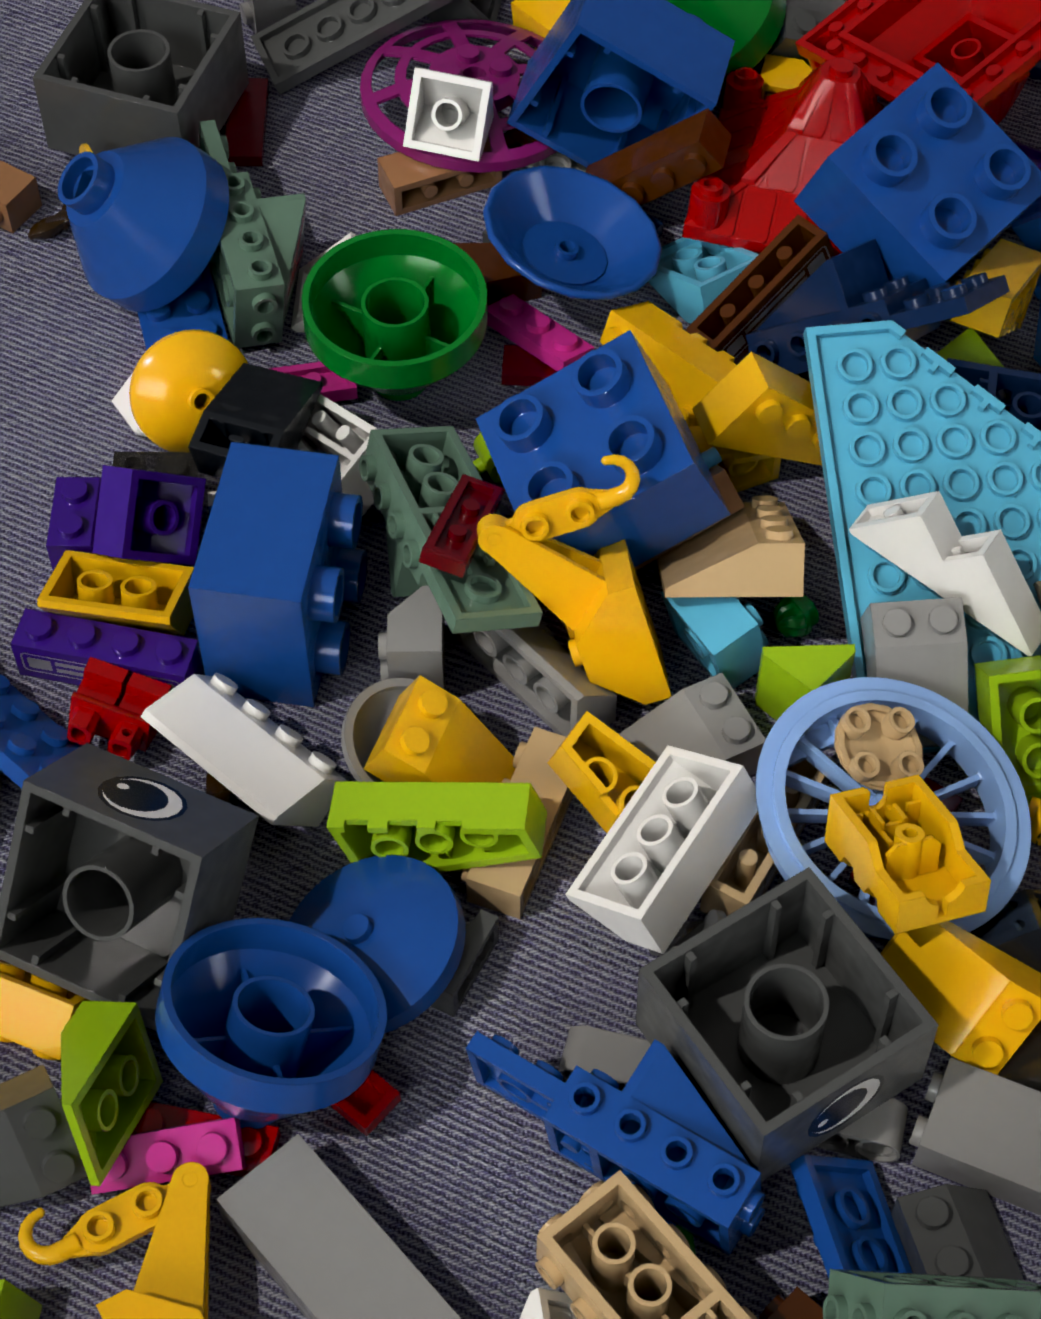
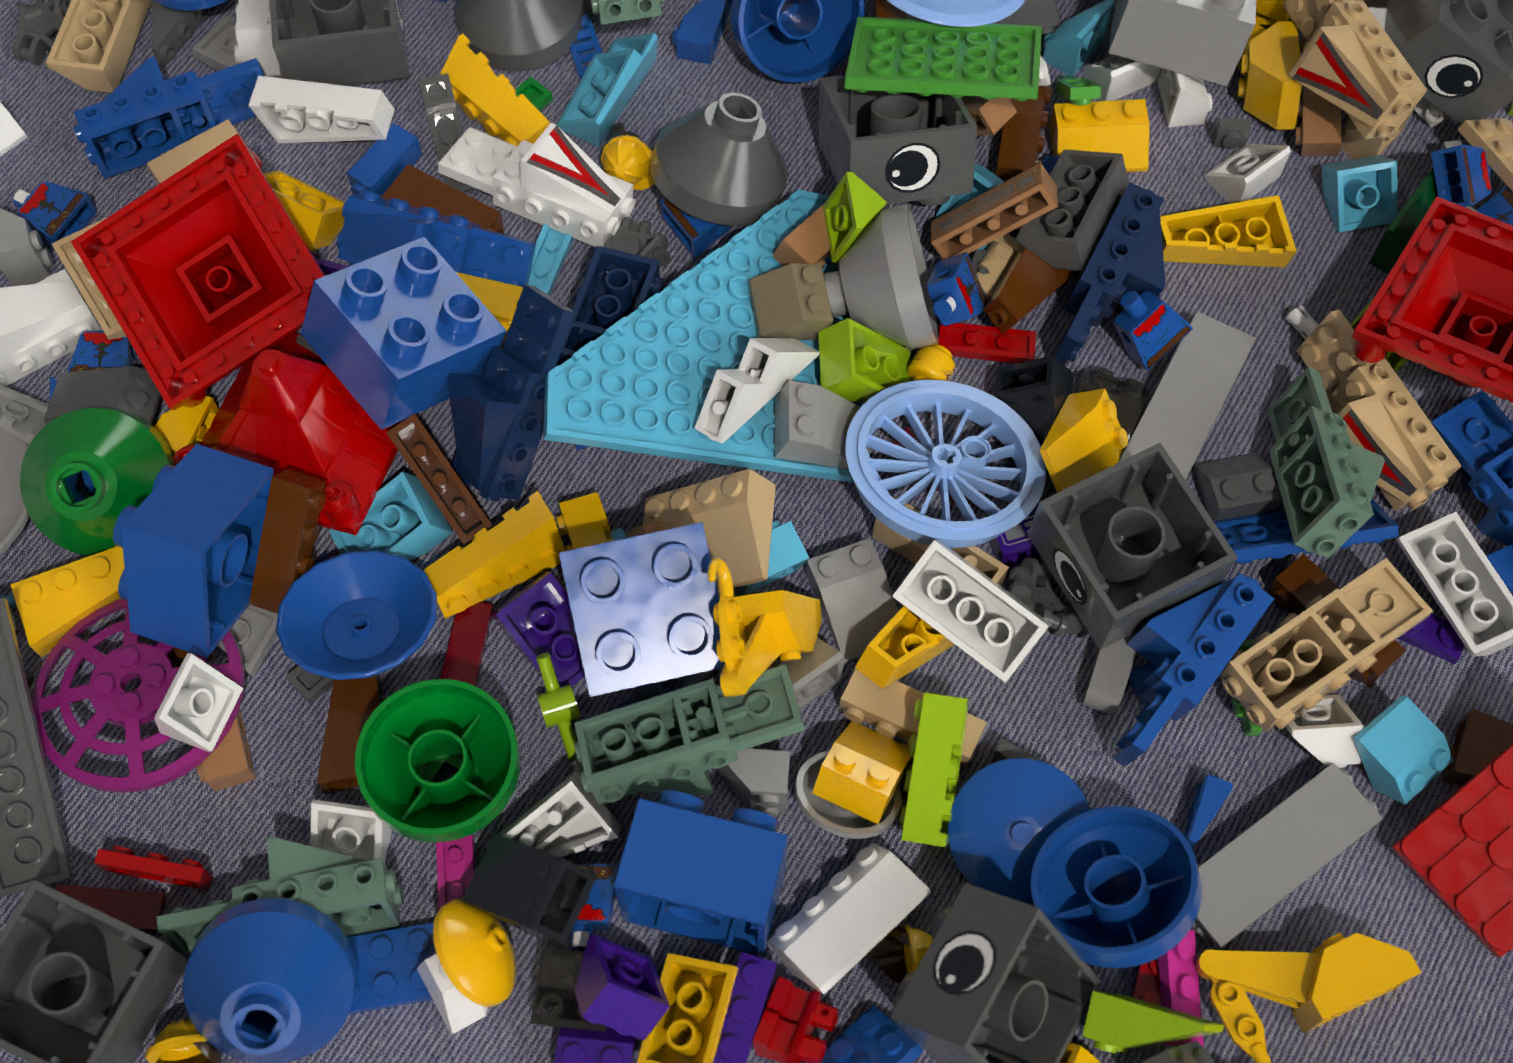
camera: 85 degrees left, 10 degrees up
(286, 143) = (154, 868): none -> red plate
(427, 1193) = (1207, 801): none -> blue slope
(455, 533) = (708, 711): dark red tile -> none
(536, 332) = (438, 659): dark pink plate -> none
(761, 412) = (583, 490): yellow wedge -> none
(796, 670) = (824, 506): lime slope -> none
(878, 744) = (910, 454): tan dish -> none
(906, 854) = (1013, 446): yellow piece -> none

